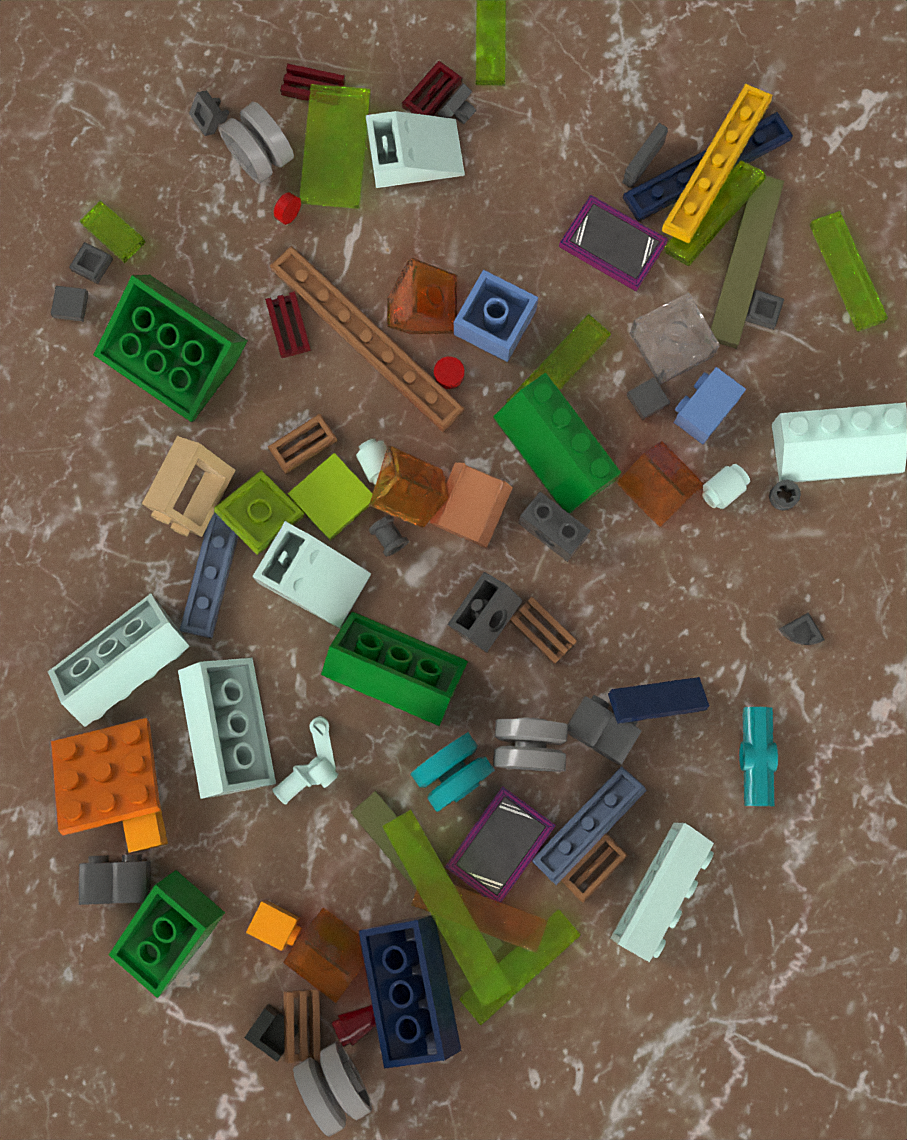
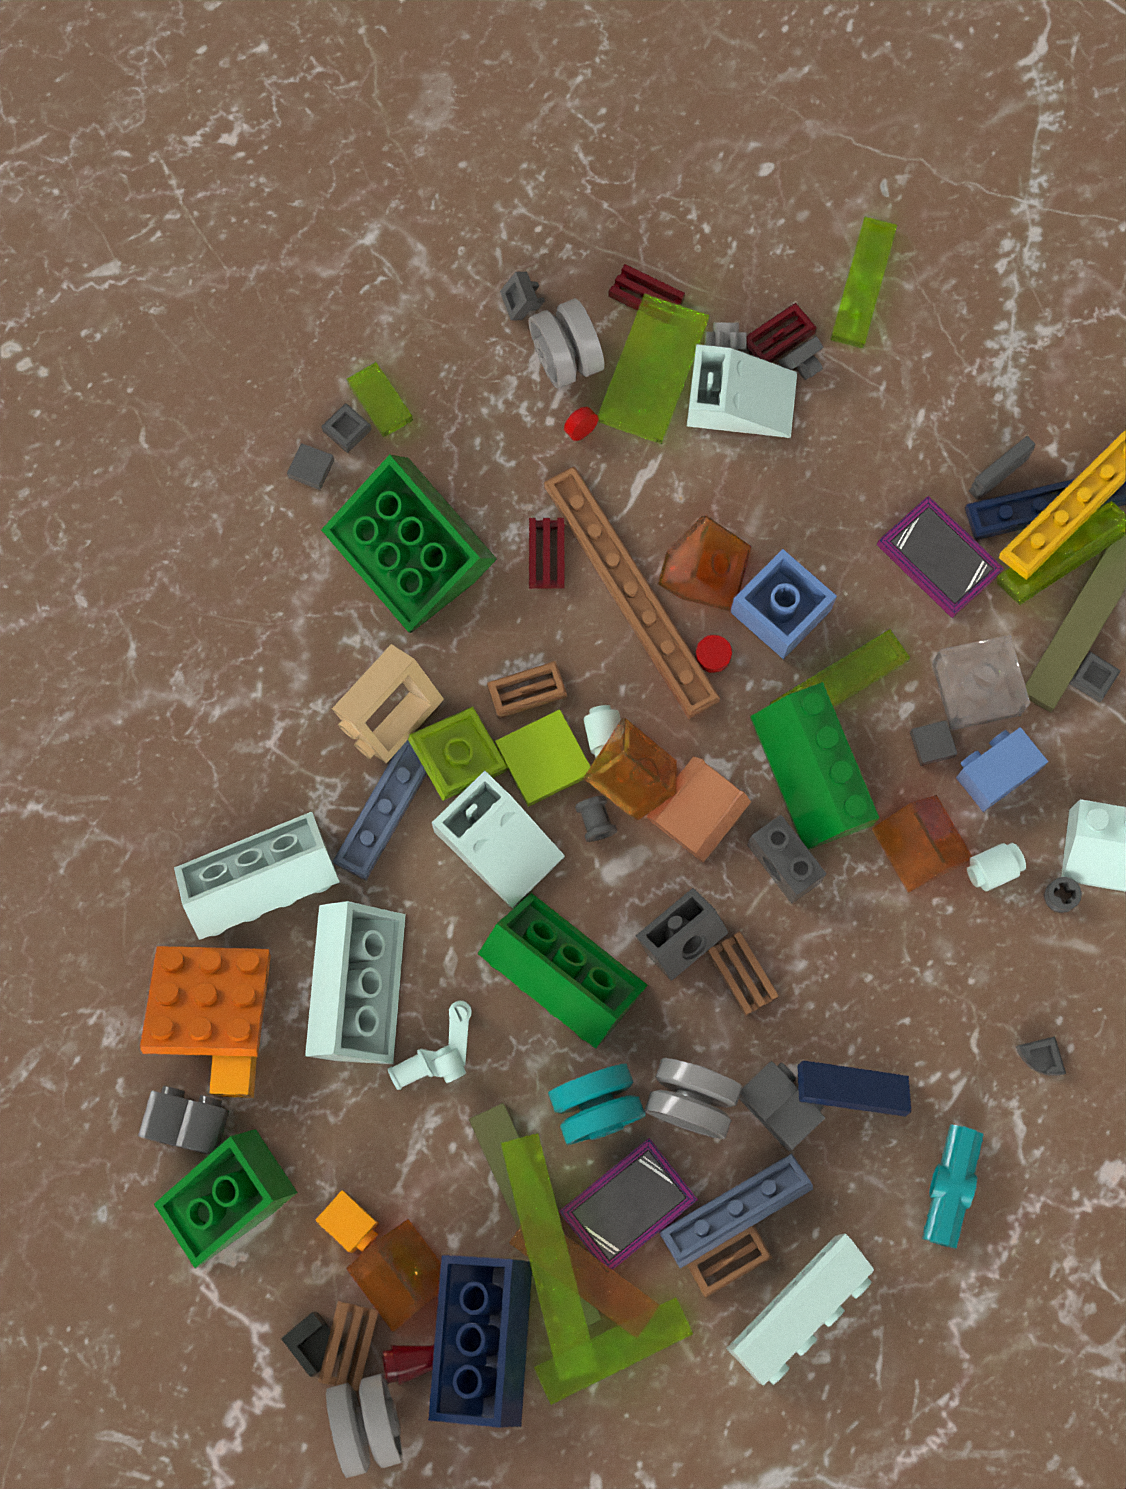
camera: 15 degrees right, 5 degrees down
(388, 102) = (726, 336): none -> light grey gear

